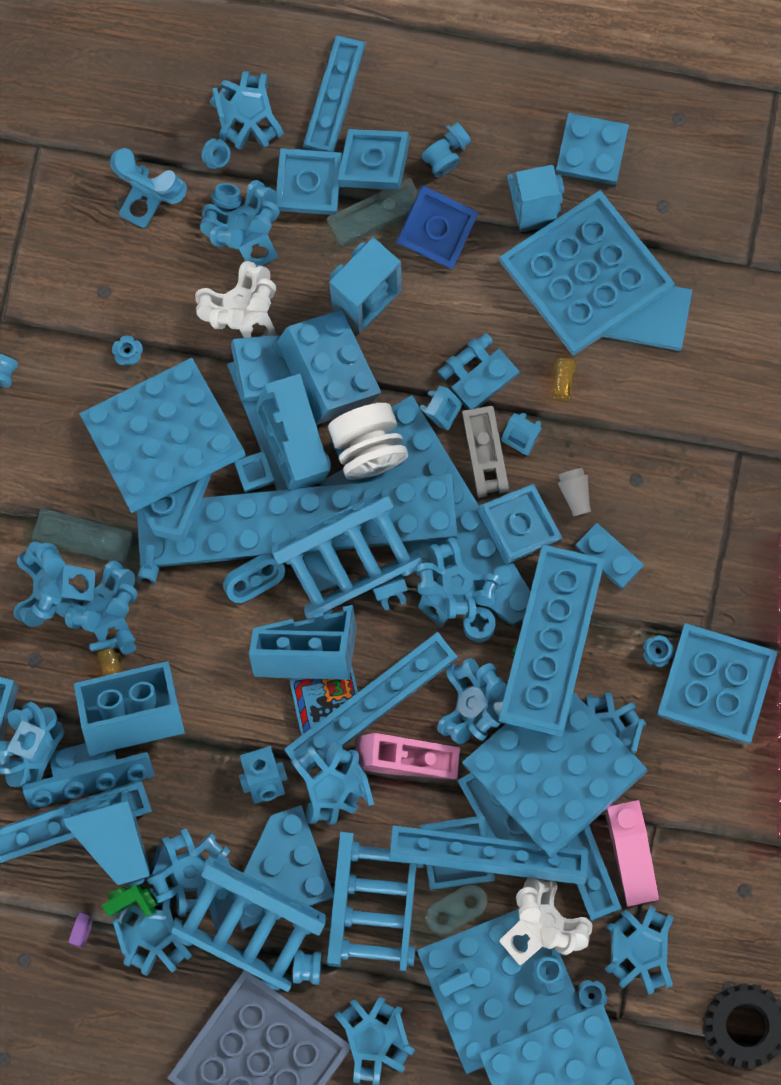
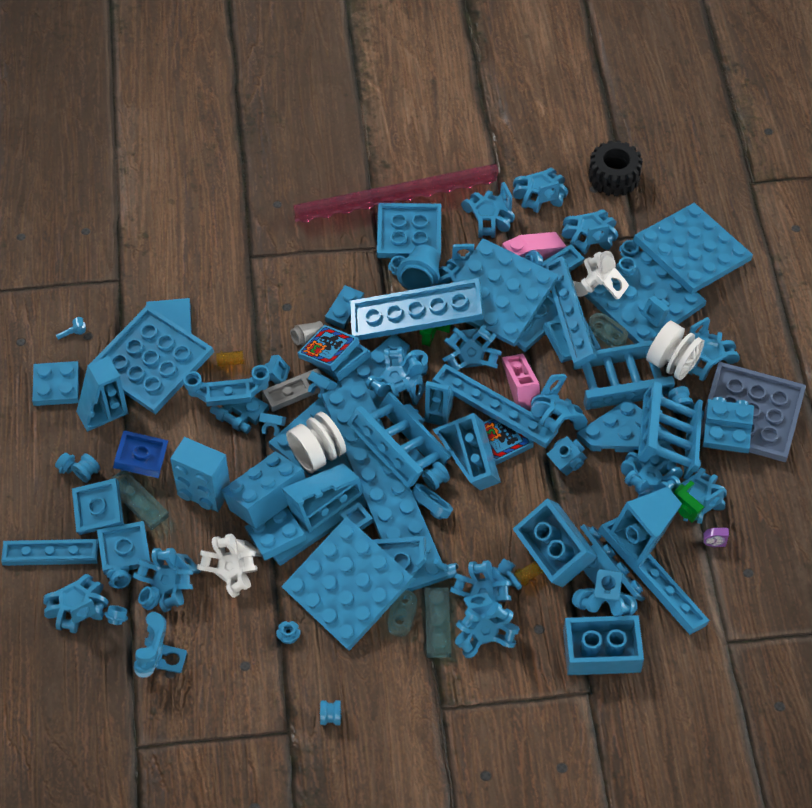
camera: 110 degrees left, 20 degrees down
(106, 497) = (403, 612): none -> clear light blue plate
(236, 1011) = (728, 425): none -> dark azure plate
(266, 167) = (119, 577): none -> dark azure plate
(289, 594) = (435, 476): none -> dark azure wheel
(366, 975) = (671, 348): none -> white wheel
(395, 627) = (438, 403): none -> dark azure slope
(472, 480) = (322, 382): none -> dark azure tile
(496, 354) = (227, 391): none -> dark azure plate
(533, 508) = (328, 348): none -> tile
(596, 836) = (535, 257): none -> dark azure plate
(633, 673) = (420, 268): none -> dark azure piece
(677, 194) = (78, 328): none -> dark azure hand
(719, 807) = (489, 208): none -> dark azure piece
(742, 901) = (542, 185): none -> dark azure piece

